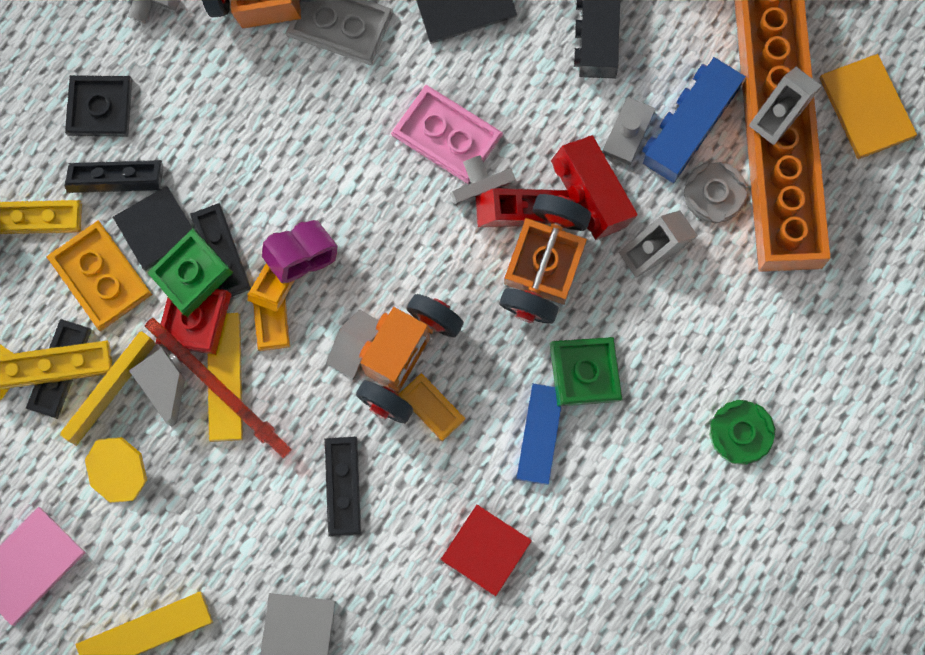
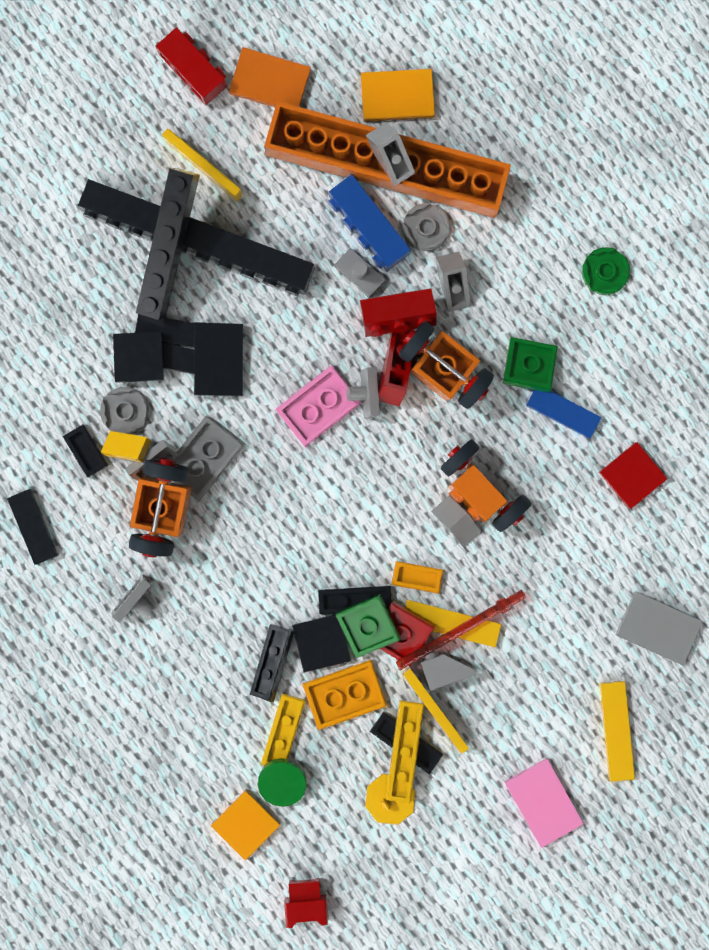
camera: 85 degrees left, 10 degrees up
(98, 106) = (209, 659): black tile -> none
(115, 469) = (497, 720): yellow piece -> none
(268, 290) = (393, 565): light orange tile -> none
(299, 251) = (378, 541): magenta brick -> none
(342, 486) = (556, 561): black tile -> none
(432, 407) = (520, 481): light orange tile -> none

